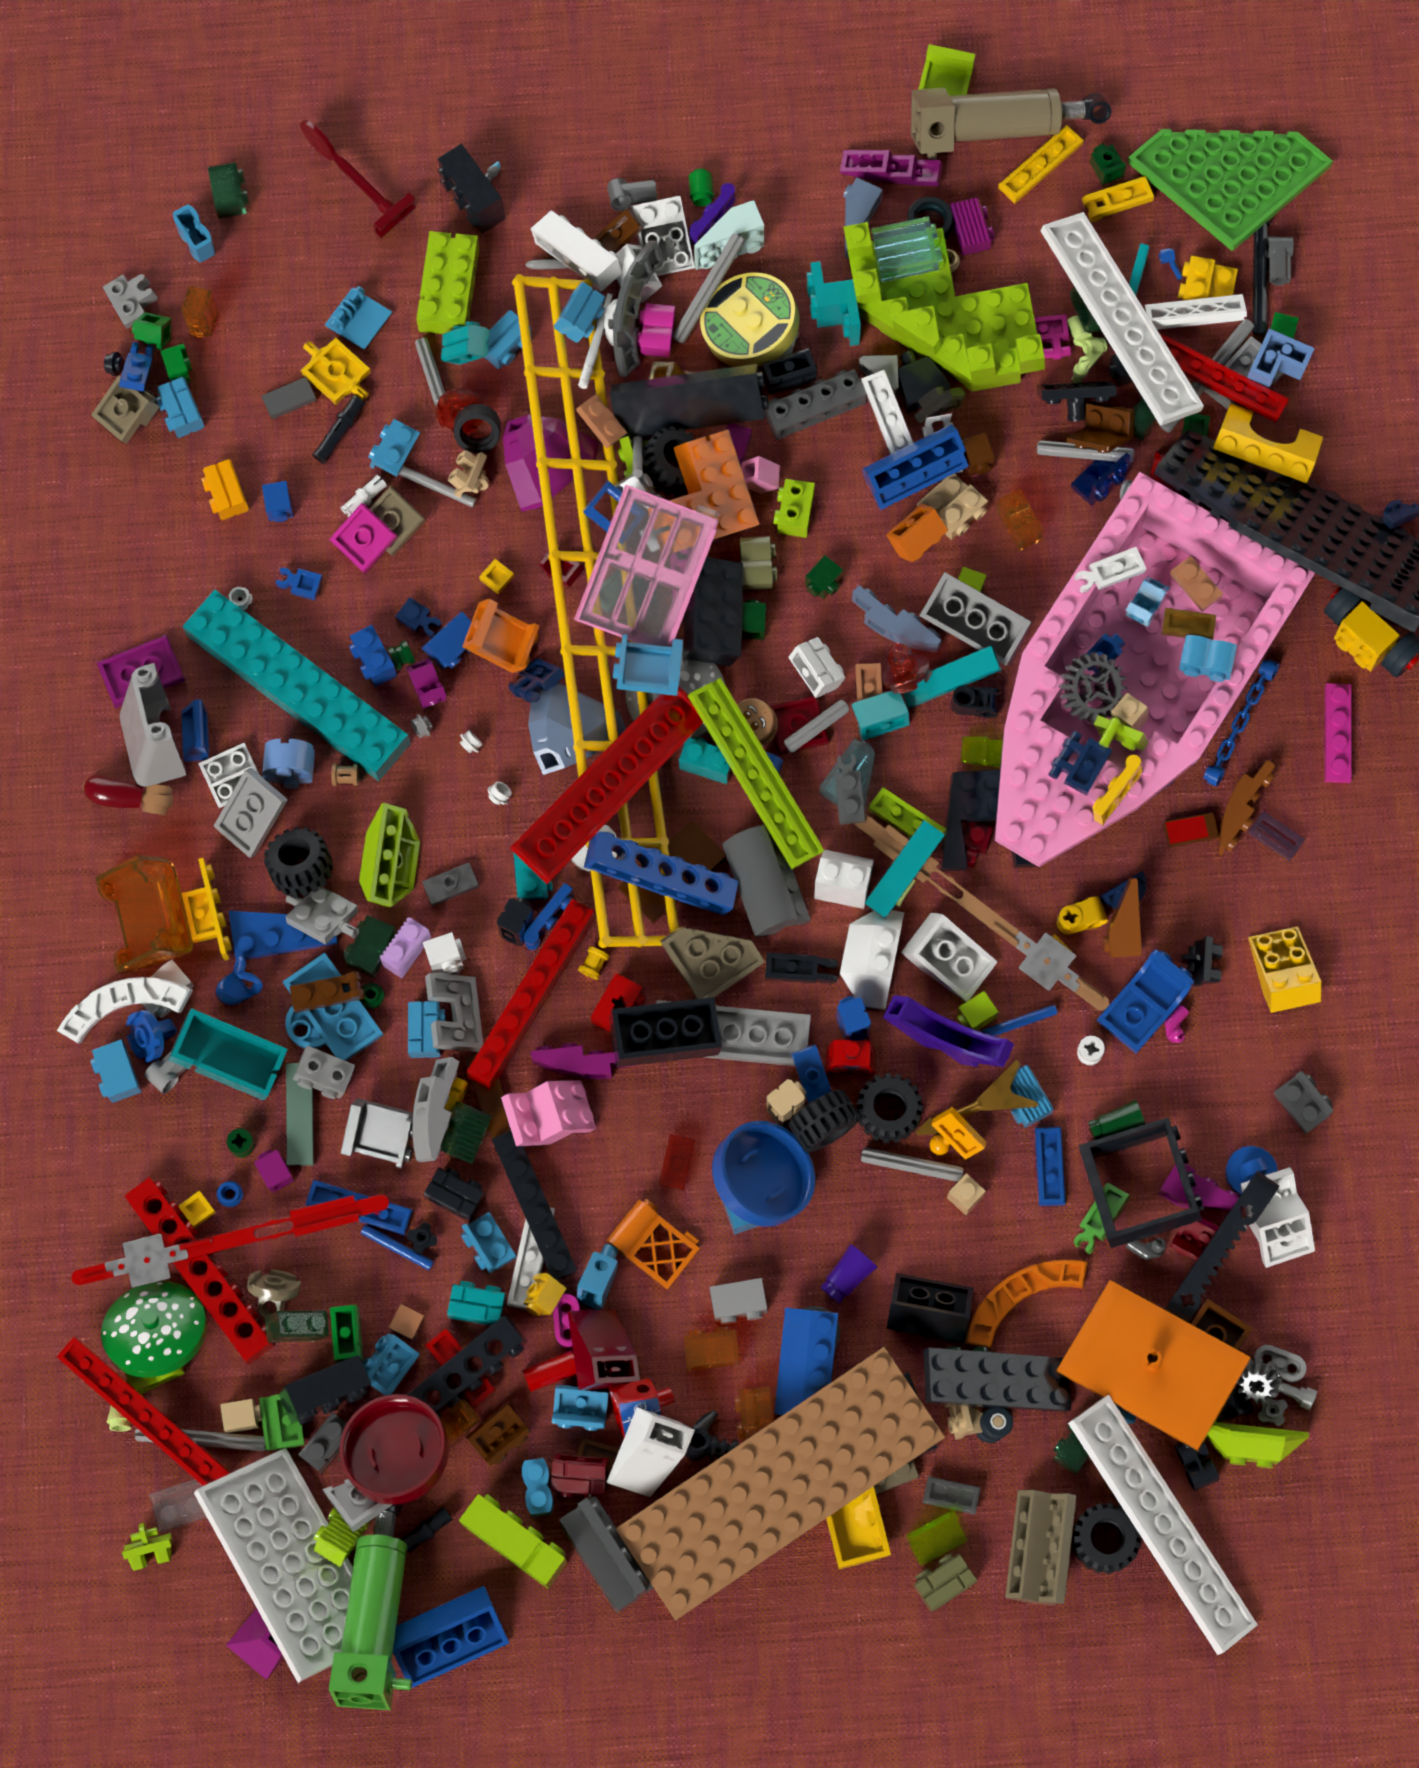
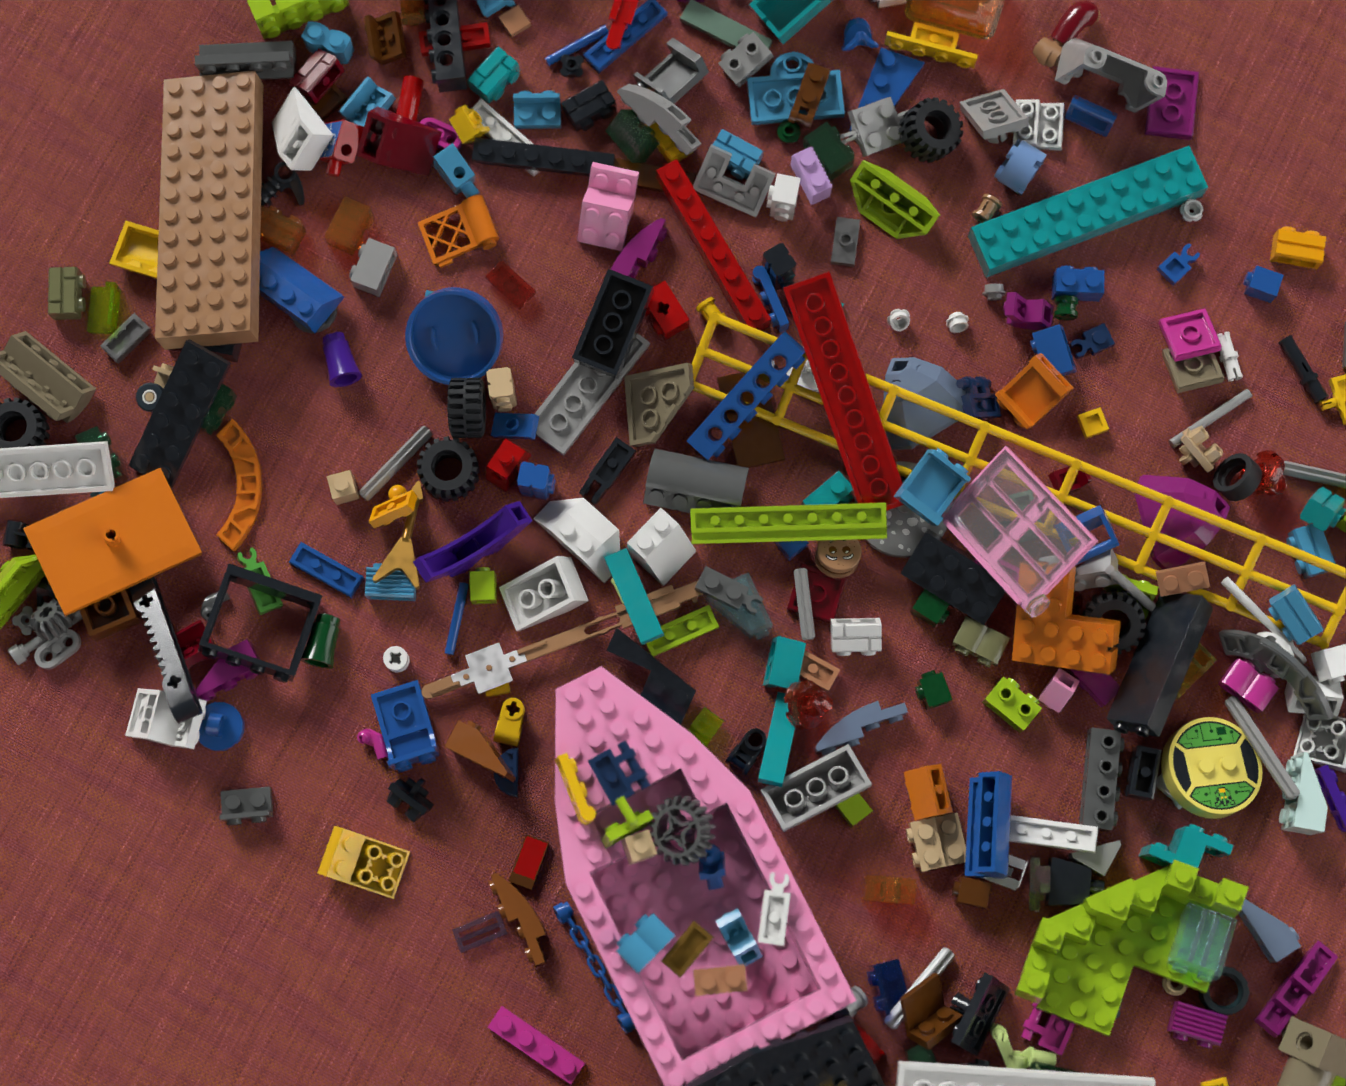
camera: 120 degrees right, 5 degrees up
(394, 448) = (1259, 402): dark azure bracket -> none
(930, 1308) = (275, 407): black slope -> none
(976, 840) = (628, 675): dark red plate -> none

